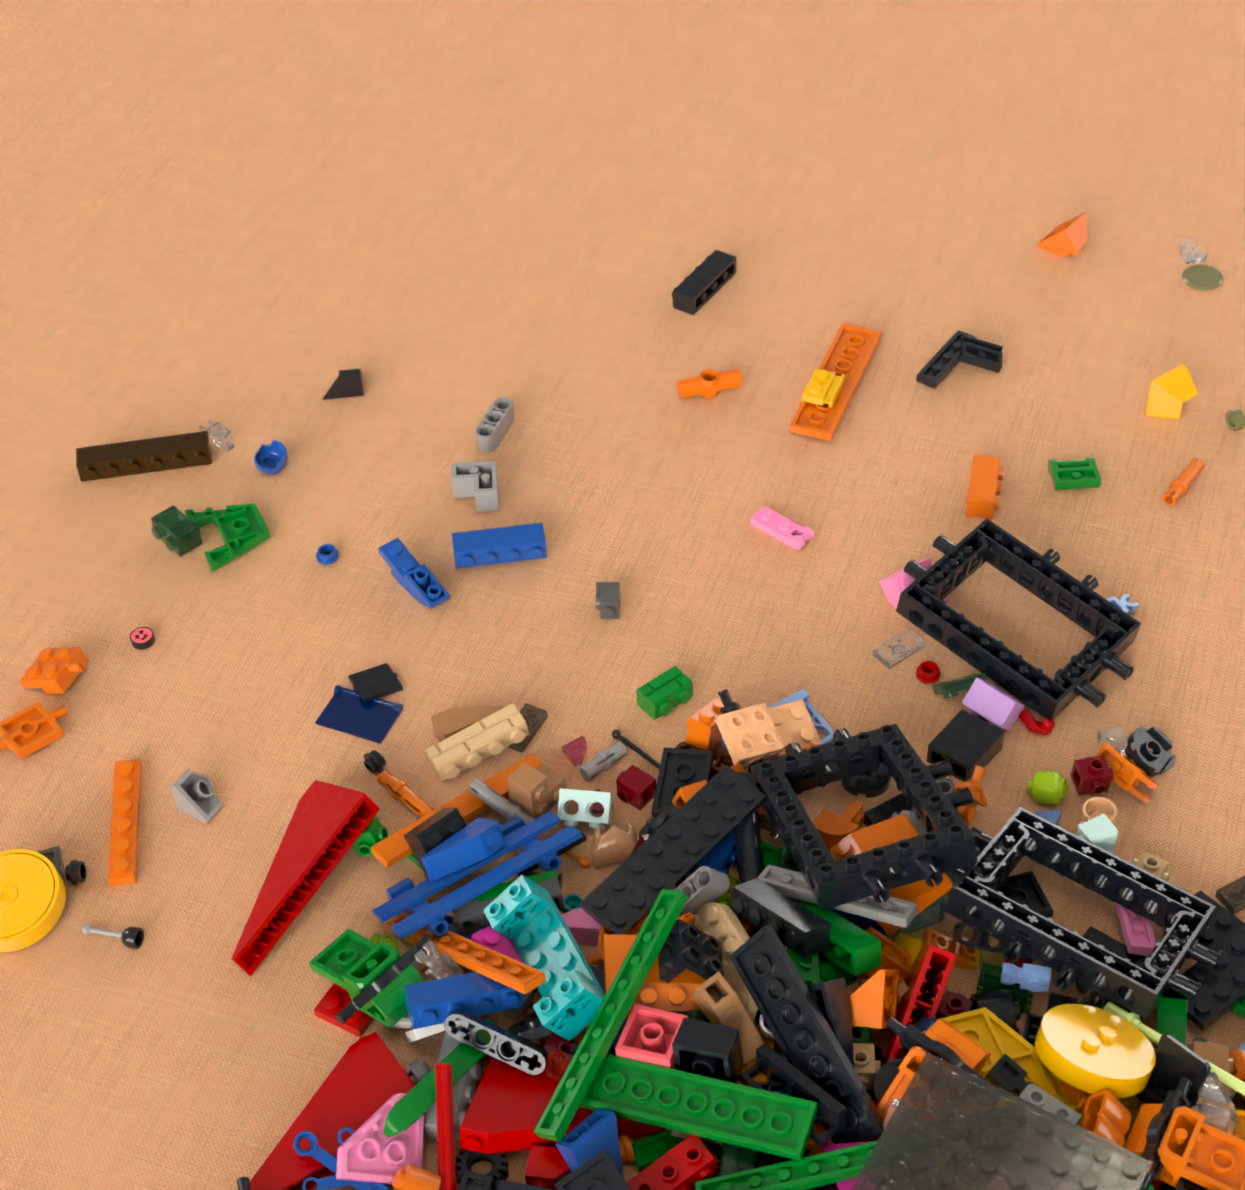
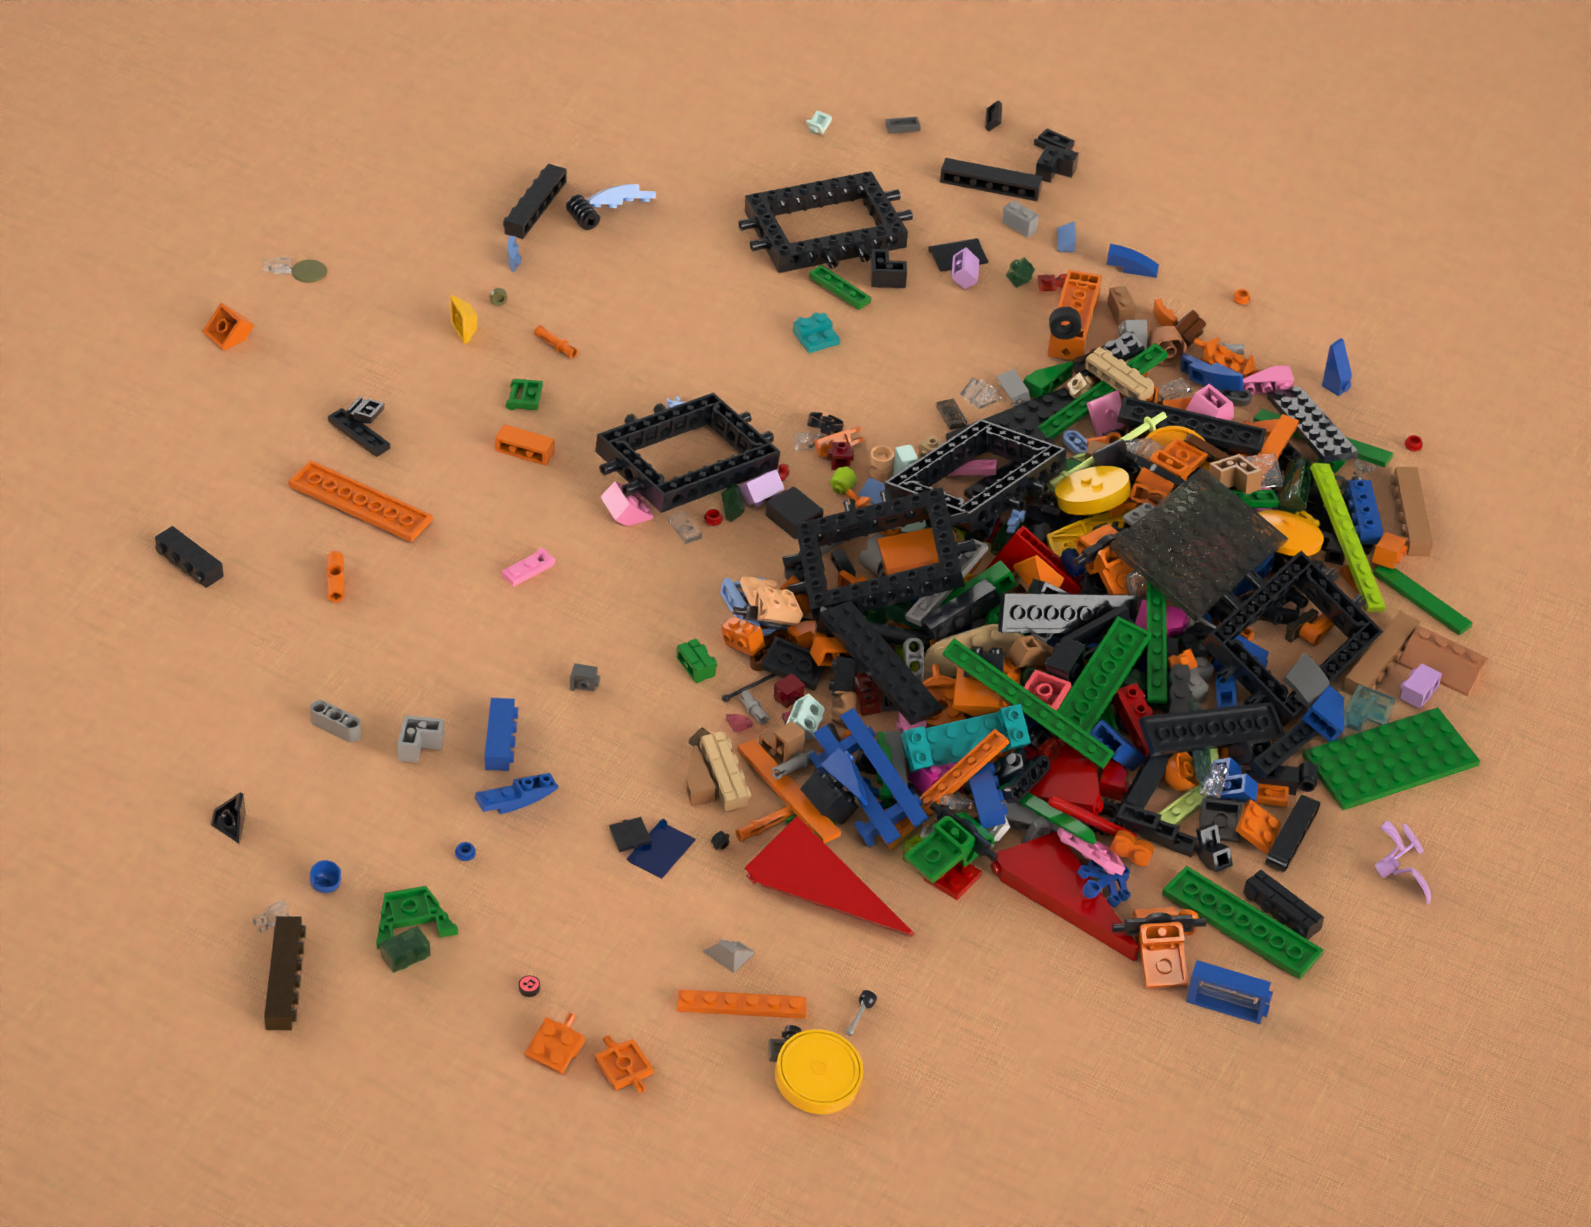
camera: 85 degrees left, 0 degrees up
(823, 387) = (375, 506): yellow plate -> none

